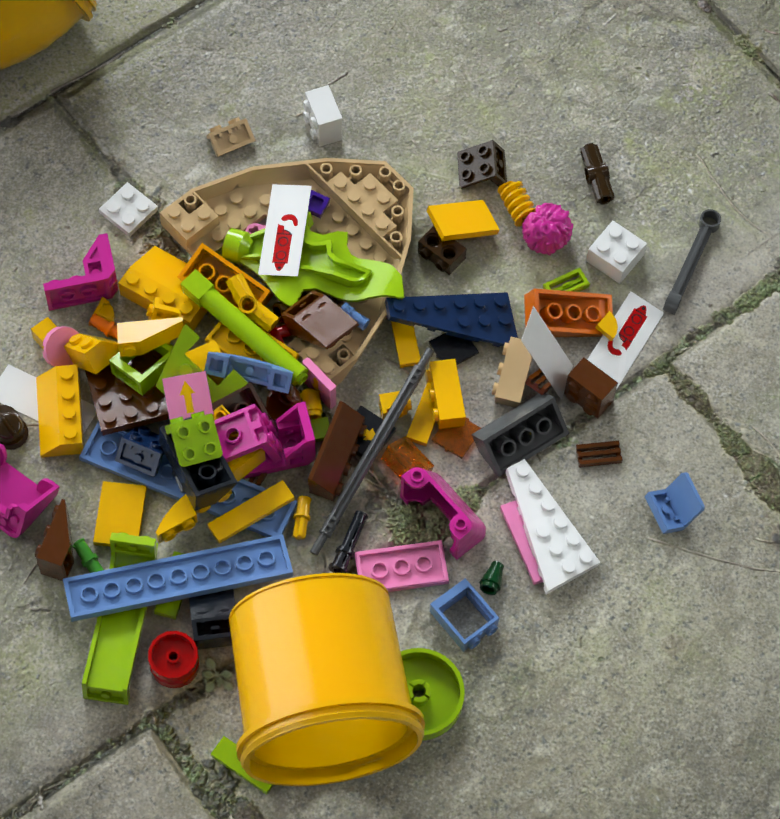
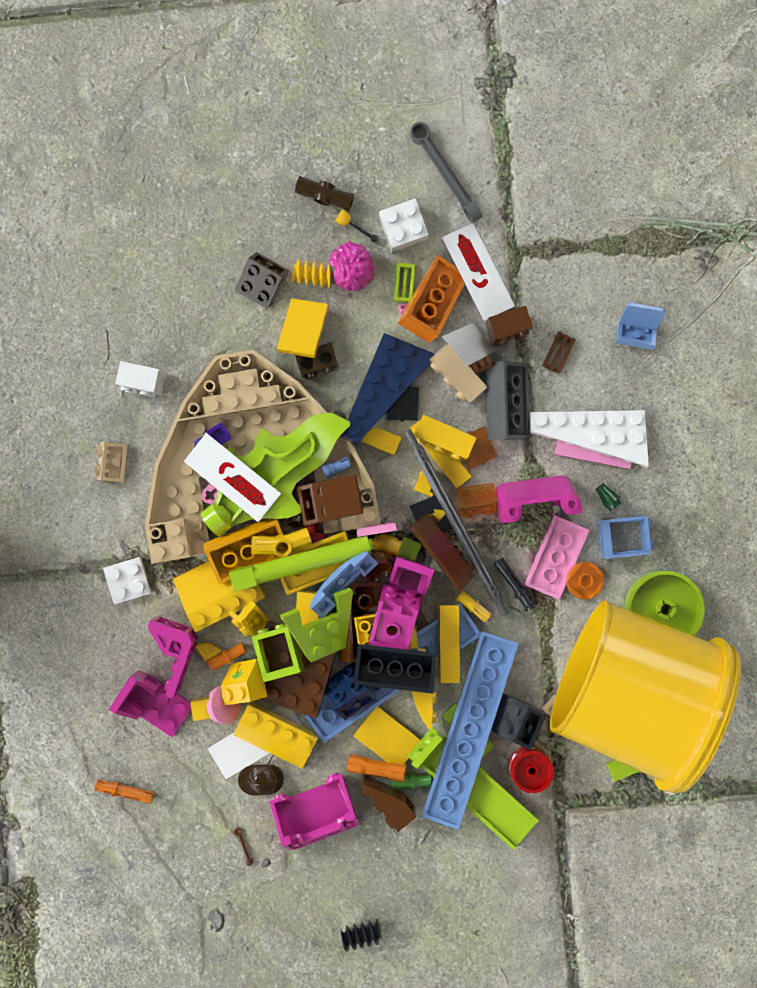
camera: 50 degrees left, 25 degrees up
(24, 272) = (146, 698): none -> dark pink bracket
(89, 529) = (362, 765): none -> orange axle
(143, 336) = (262, 647): yellow slope -> none
(187, 395) = (337, 644): bright pink tile -> none
(195, 439) = (382, 666): lime bracket -> none
(403, 603) = (585, 580): none -> orange tile
(587, 202) = (344, 218): none -> hinge
(608, 326) = (462, 275): yellow tile -> none

